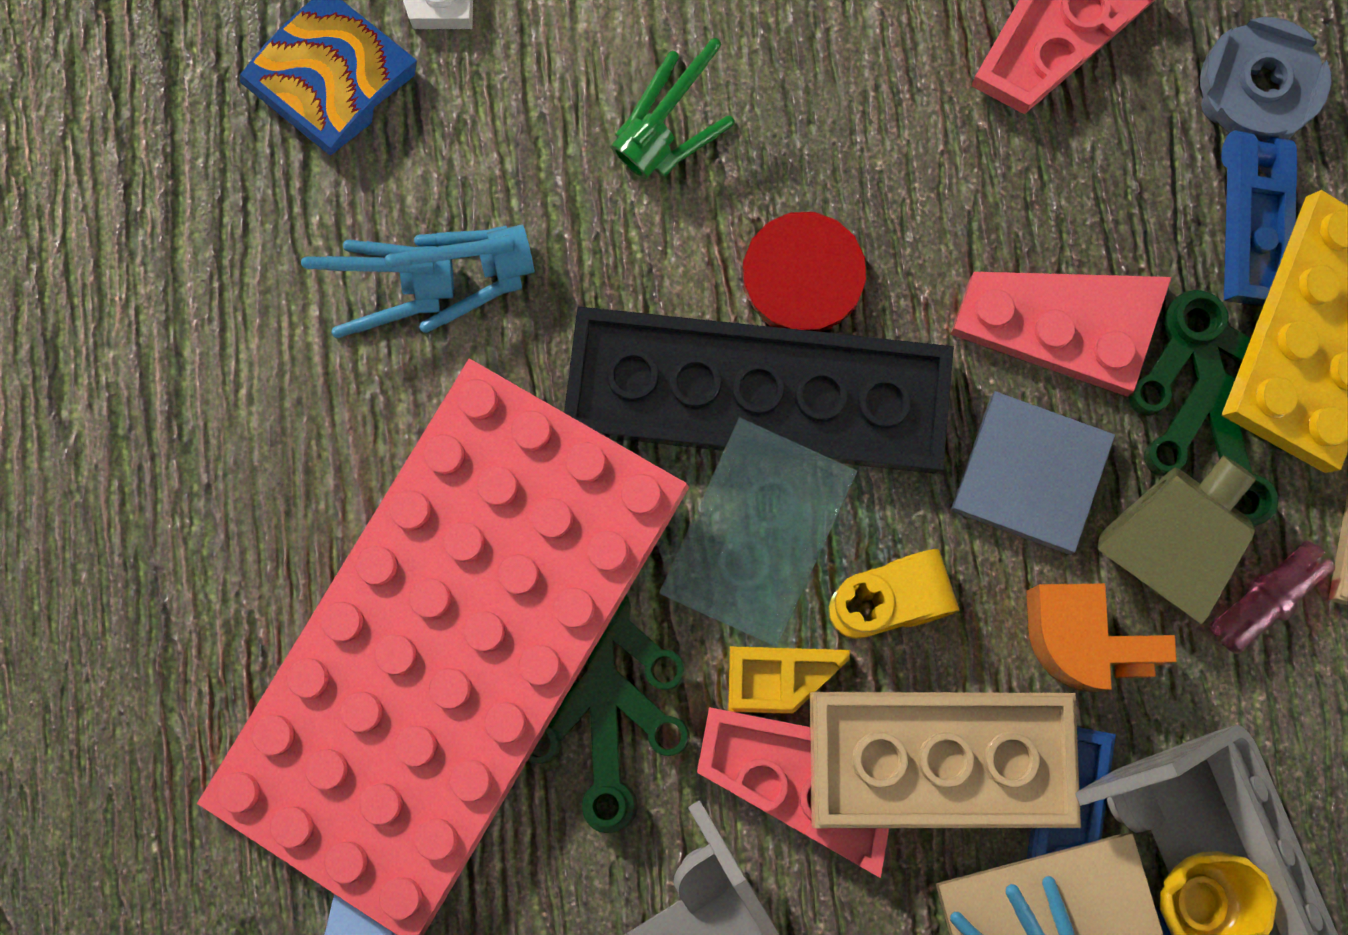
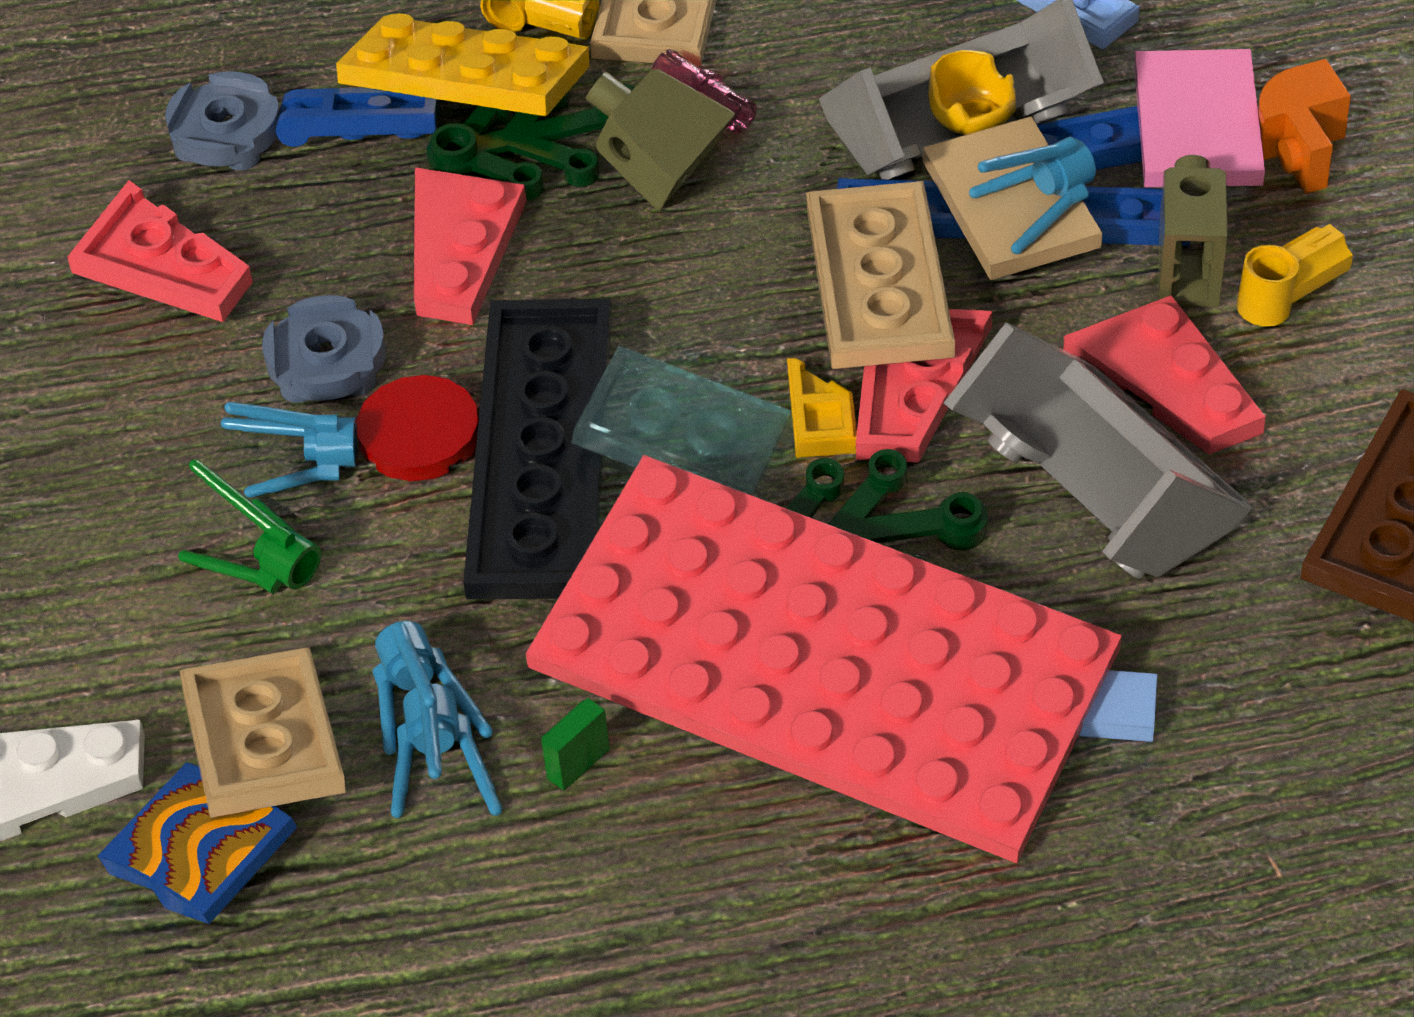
camera: 95 degrees left, 30 degrees down
(376, 401) = (575, 743): none -> green tile
(430, 121) = (261, 732): none -> tan tile
(785, 184) = (326, 440): none -> dark azure plant
(903, 594) = (733, 331): yellow piece -> none
(939, 157) = (315, 376): none -> sand blue plate
(1032, 473) = (605, 251): sand blue tile -> none
(1073, 641) = (756, 203): orange brick -> none

